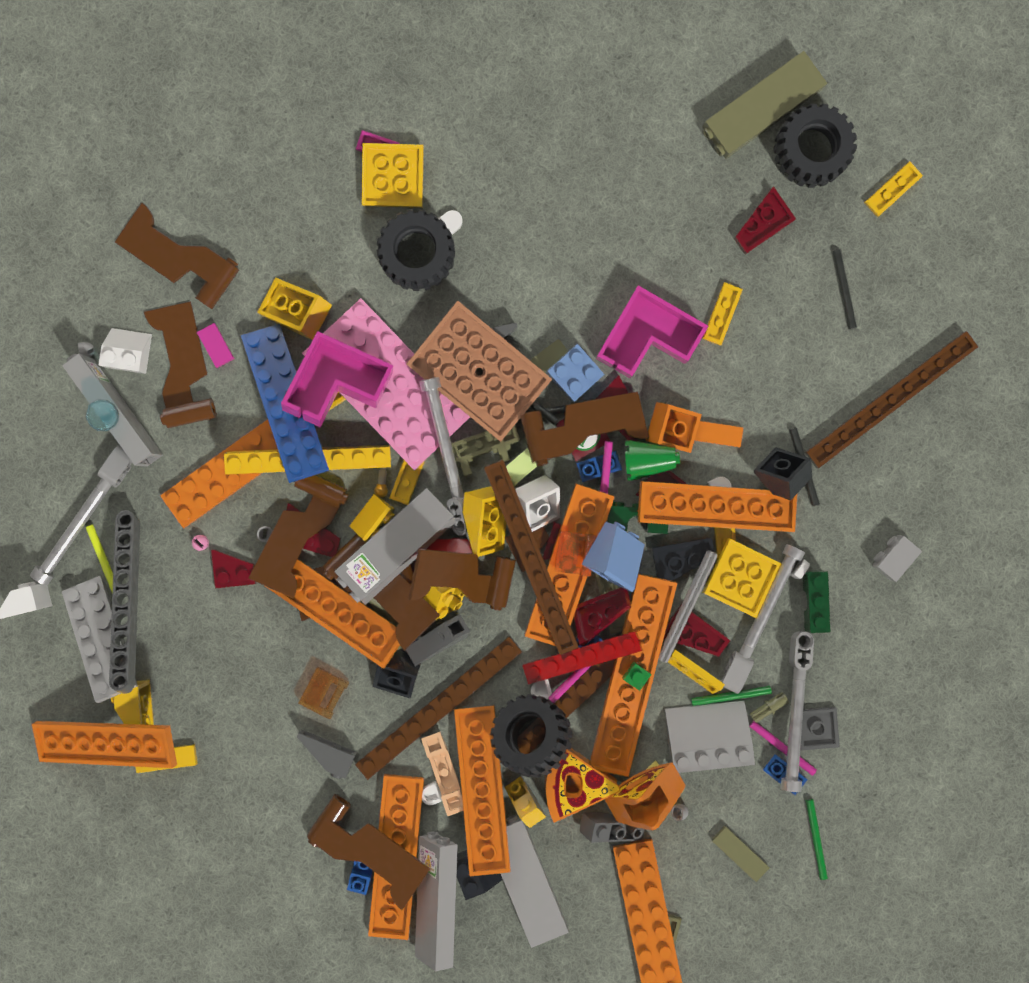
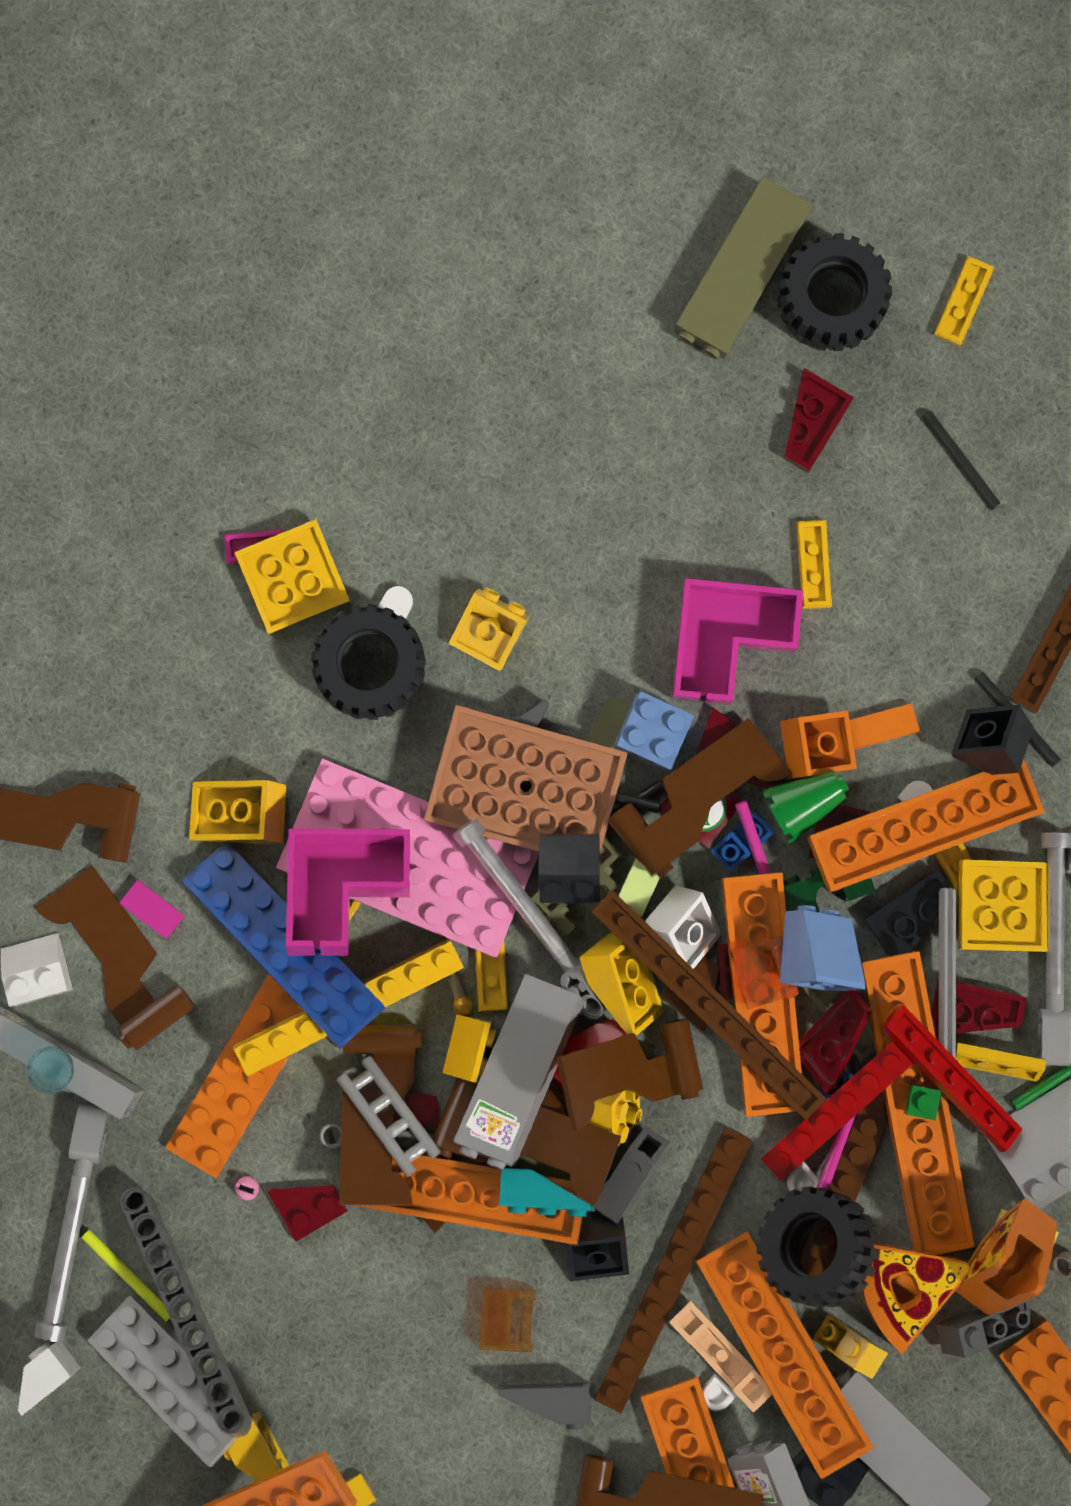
camera: 20 degrees left, 5 degrees down
(313, 545) = (407, 1119): none -> light grey bar
(370, 622) = (530, 1189): none -> teal slope
(483, 435) = (569, 868): none -> black slope
(501, 263) = (489, 628): none -> yellow plate
(661, 669) = (951, 1078): none -> red plate

